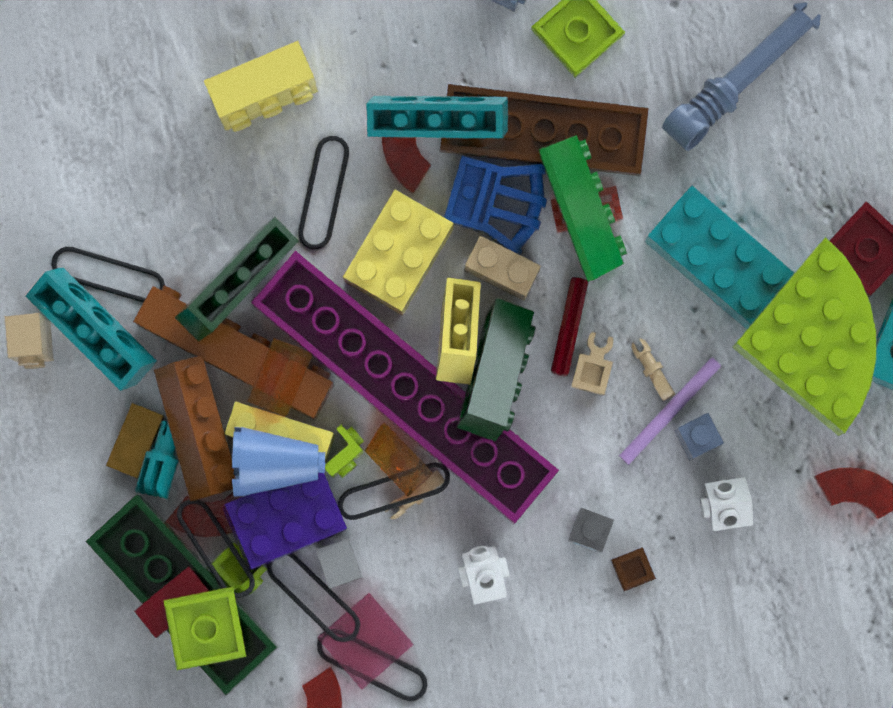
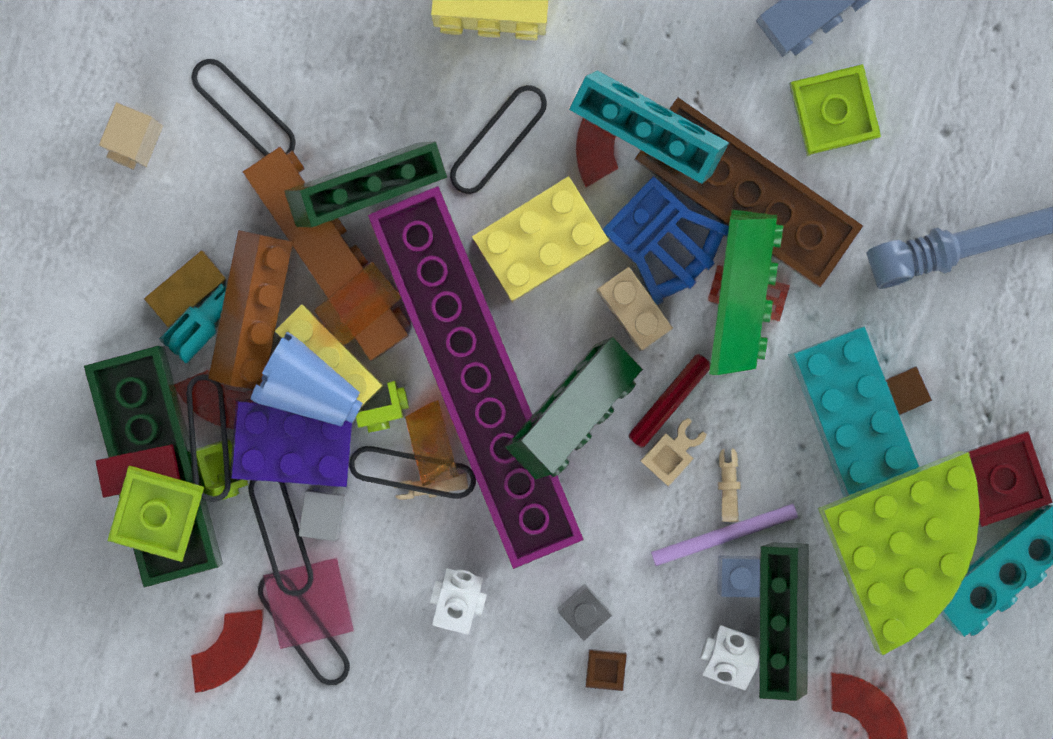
camera: 30 degrees right, 5 degrees up
(91, 328) = (198, 156): teal brick -> none
(458, 331) = (557, 351): light yellow brick -> none
(754, 218) = (908, 390): none -> reddish brown tile
(754, 453) = (784, 621): none -> dark green brick

